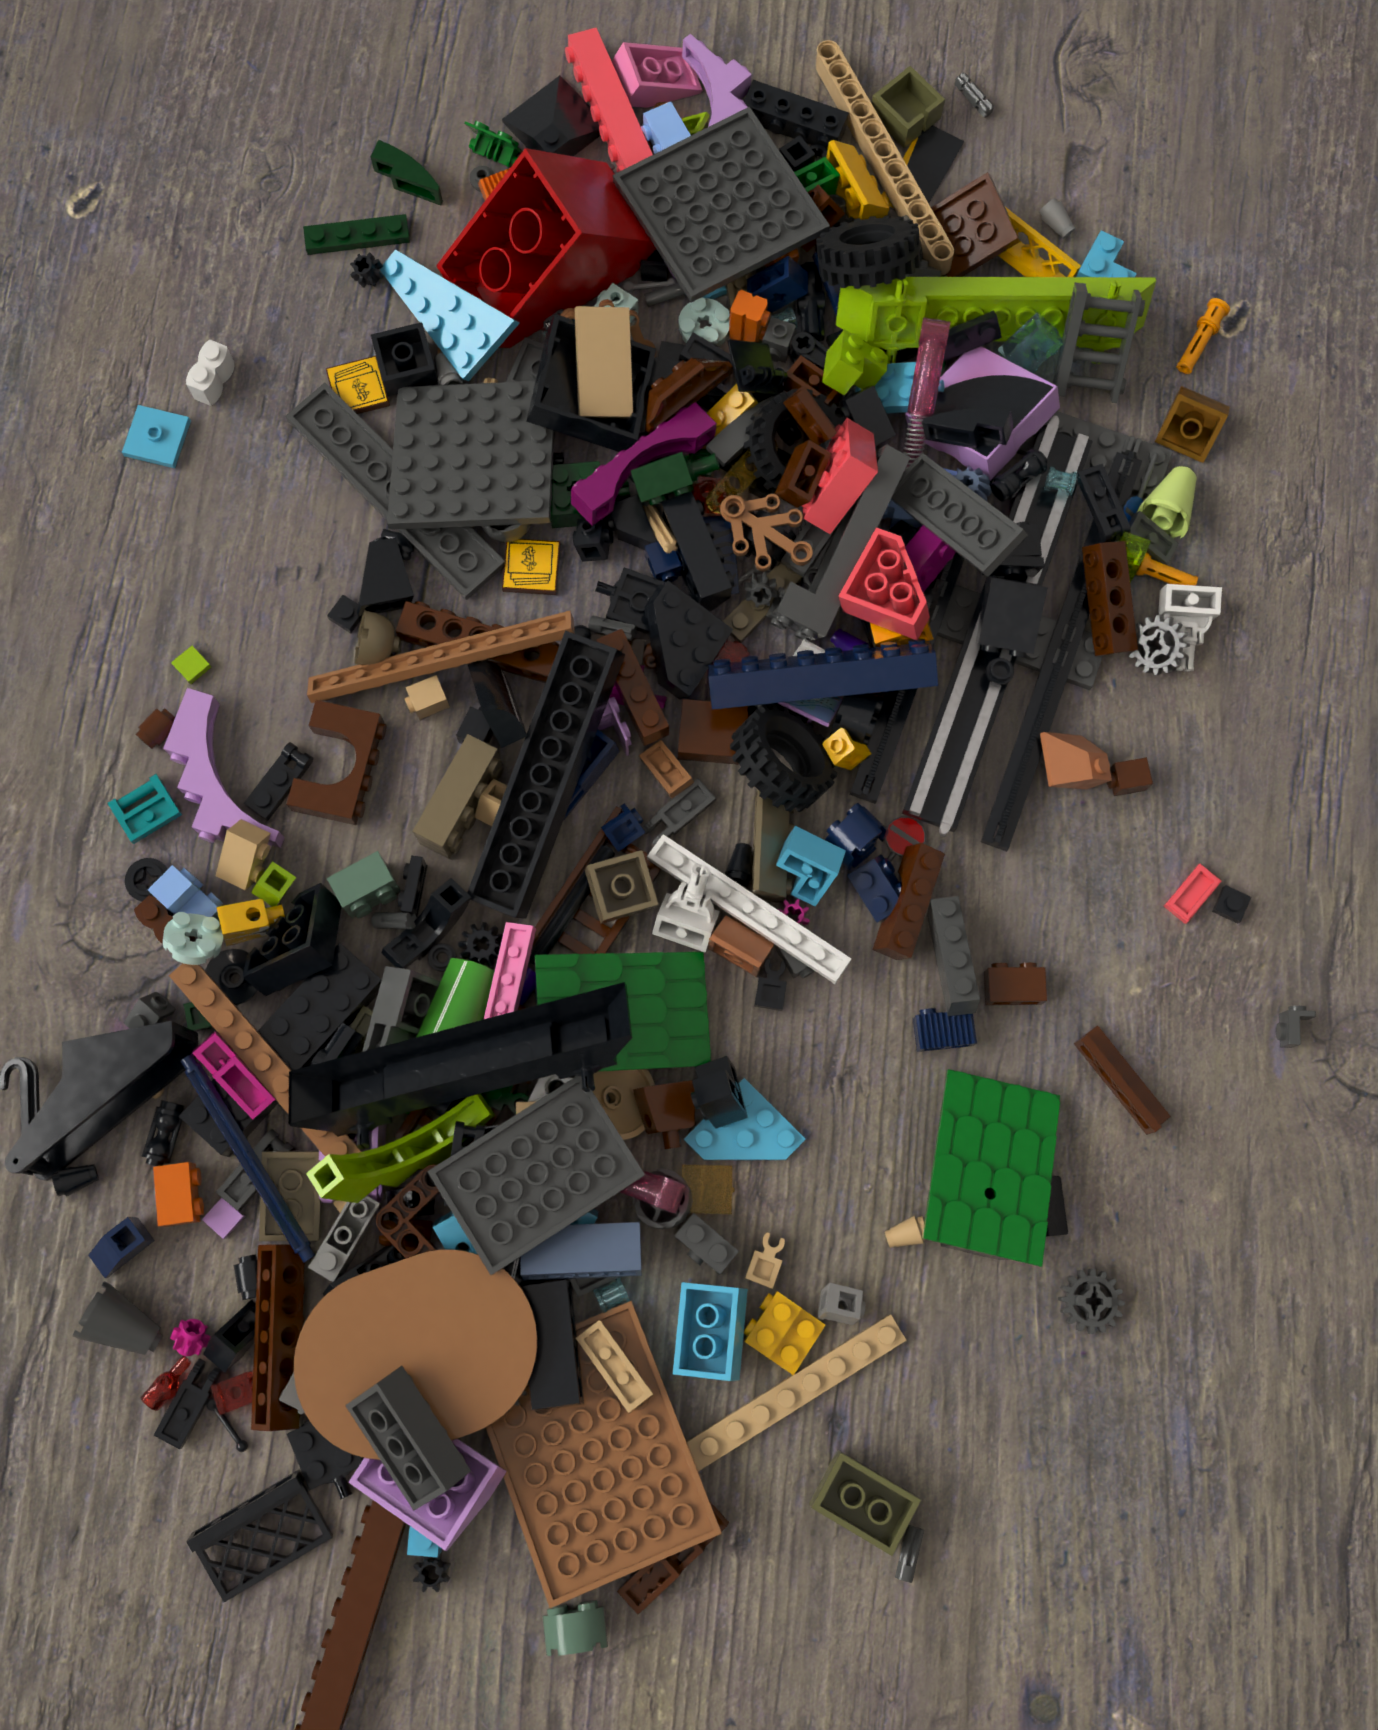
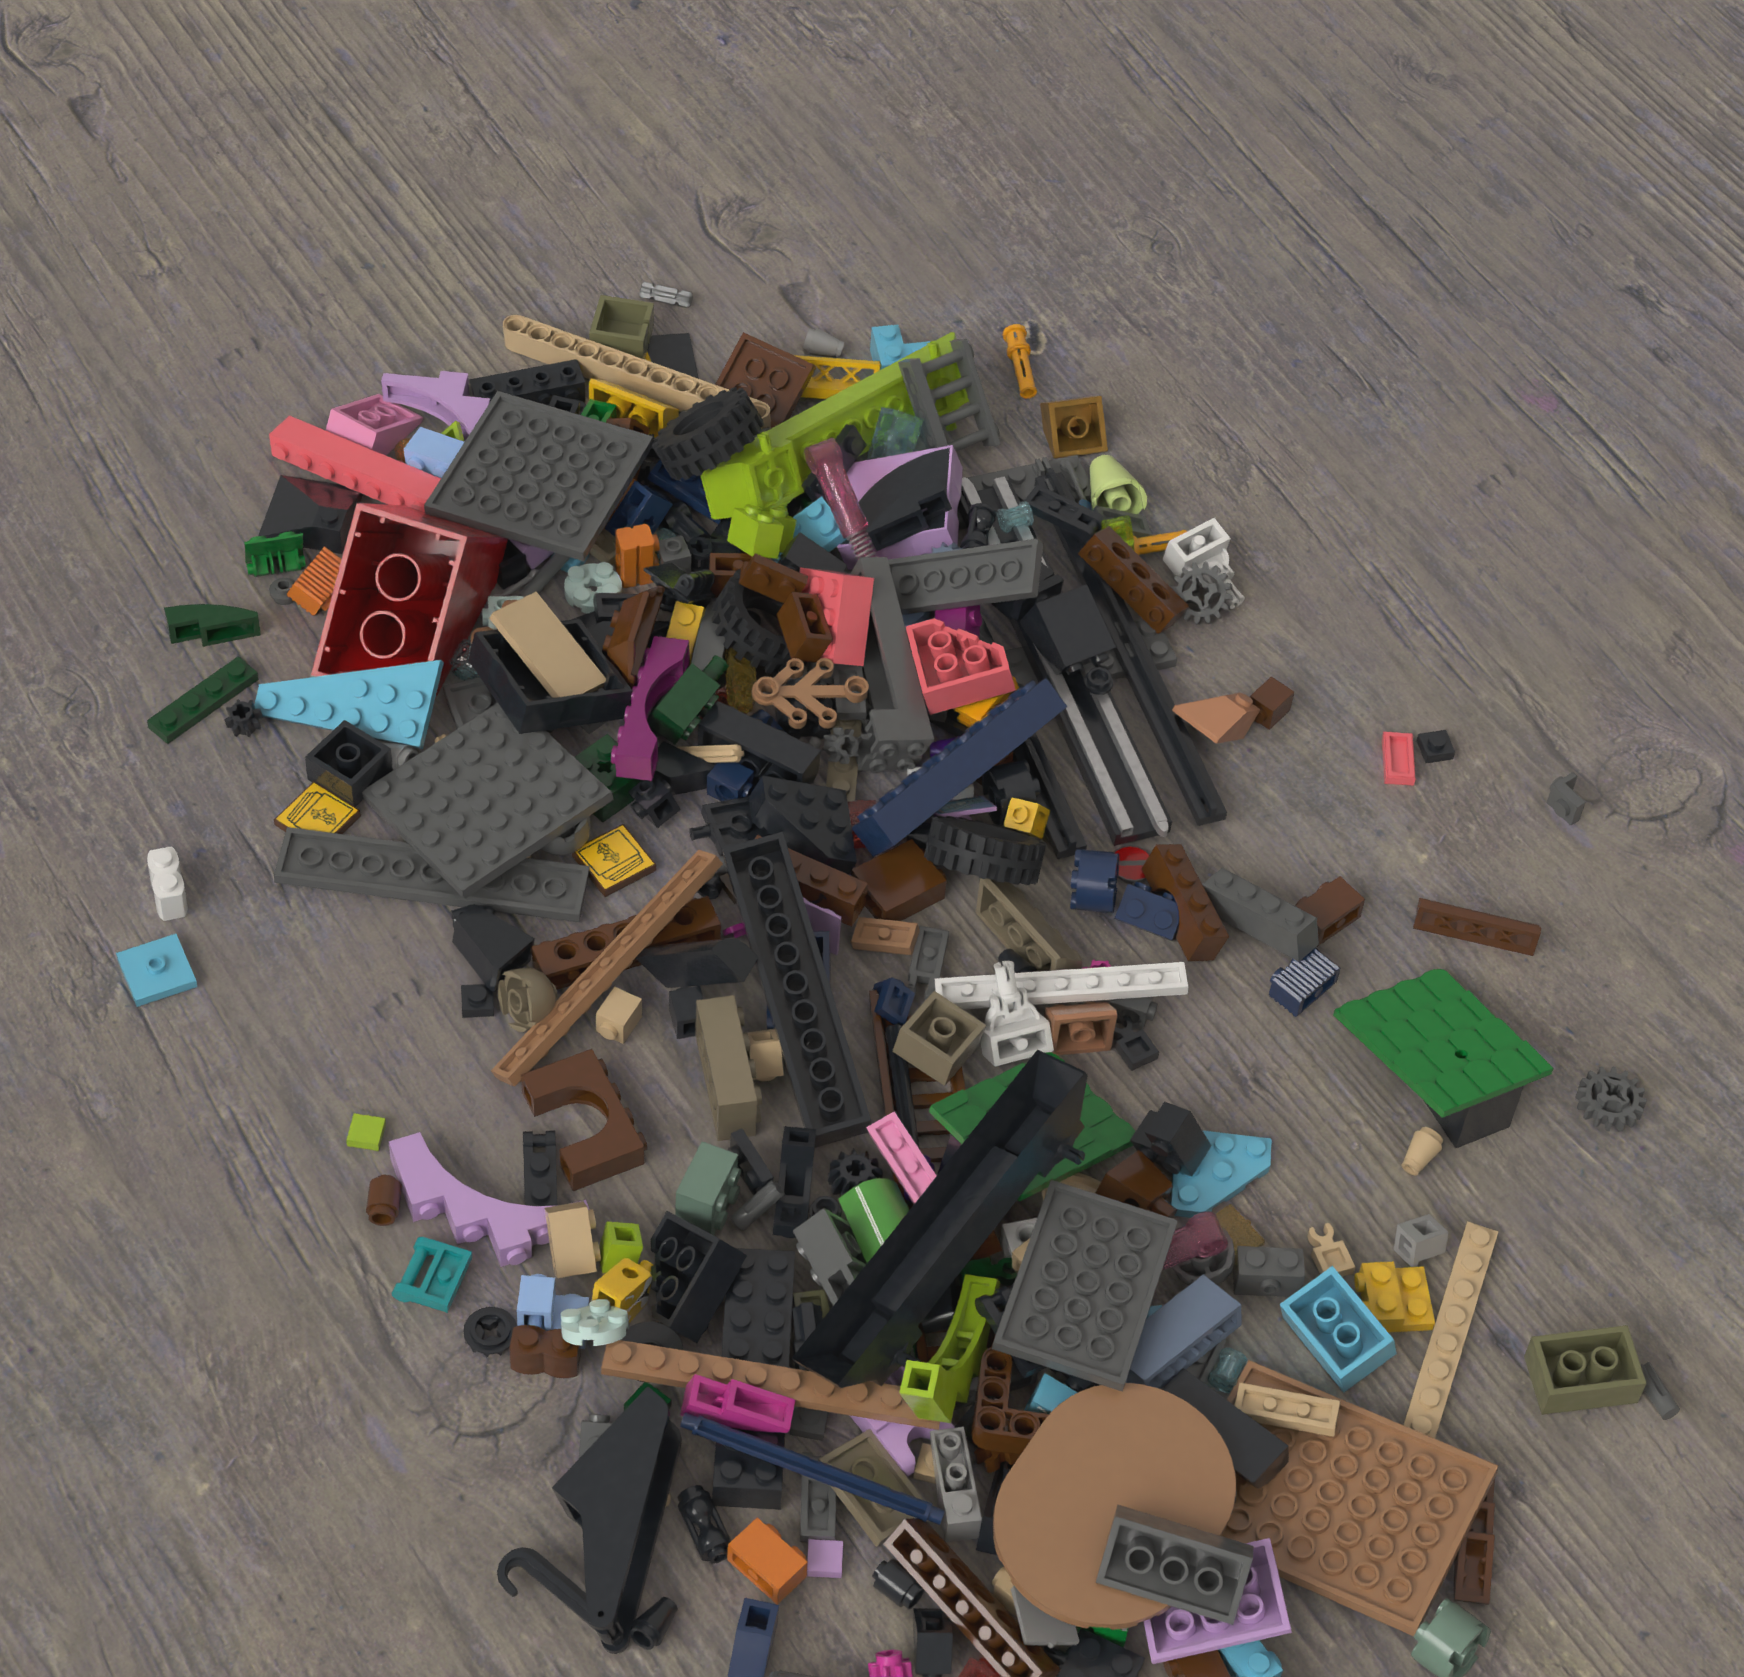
camera: 40 degrees left, 25 degrees down
(813, 863) = (1086, 915): medium azure brick -> none

